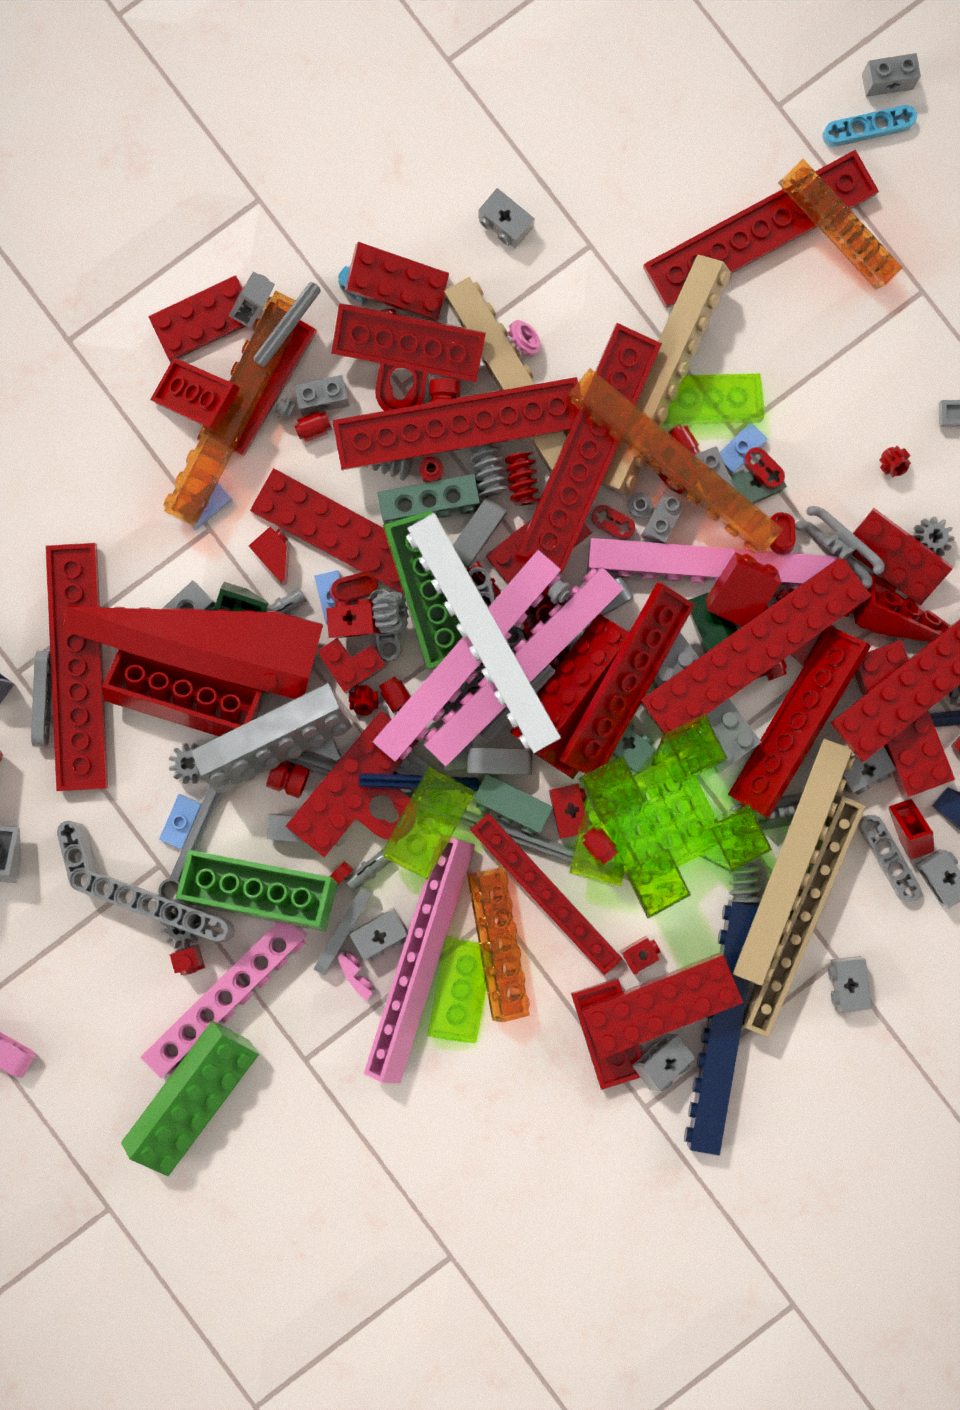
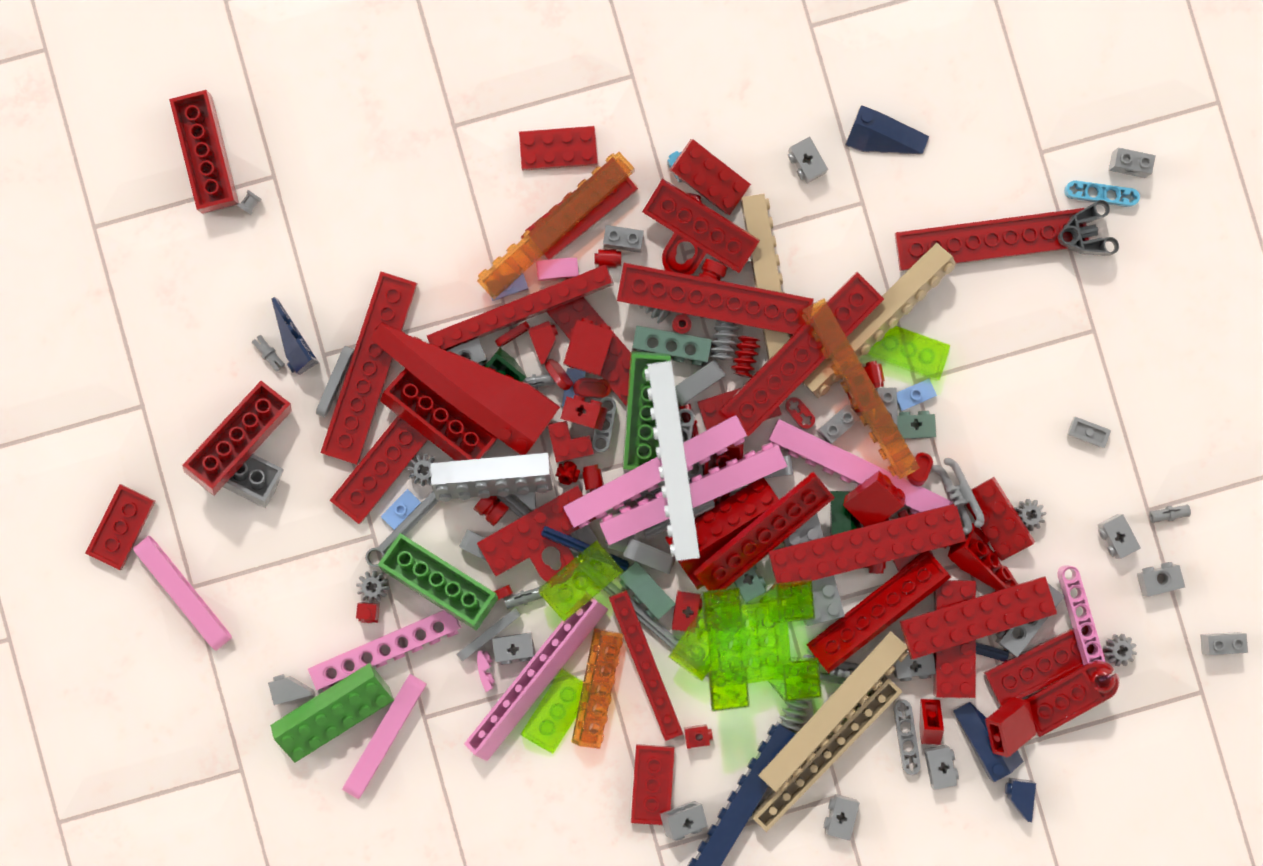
camera: 20 degrees right, 0 degrees up
(119, 889) = (339, 541): light grey beam -> none
(126, 1090) = (288, 689): none -> light grey slope
(135, 784) = (378, 470): none -> red plate
(195, 394) = (531, 203): red plate -> none
(233, 560) = (512, 334): none -> red tile
(234, 523) = (522, 308): none -> red brick
(252, 299) = (599, 151): light grey brick -> none
(256, 461) = (557, 268): none -> bright pink slope
(265, 1102) = (384, 736): none -> bright pink beam
(284, 409) = (592, 238): light grey plate -> none
(287, 324) = (618, 179): light grey axle -> none
(307, 586) = (558, 374): none -> red tile
(330, 539) = (588, 347): none -> red brick
(390, 612) = (612, 418): light grey gear -> none
(524, 338) = (785, 248): bright pink gear -> none
(559, 592) = (739, 451): light grey plate -> none
(584, 153) = (883, 134): none -> dark blue wedge
(599, 845) = (698, 645): red brick -> none
(636, 511) = (818, 410): light grey plate -> none
(661, 1005) = (698, 778): red brick -> none
(768, 464) = (928, 415): red beam -> none
(840, 224) = (1050, 260): clear orange brick -> none
(884, 190) = (1093, 246): none -> dark grey connector
(895, 461) = (1023, 448): red gear -> none

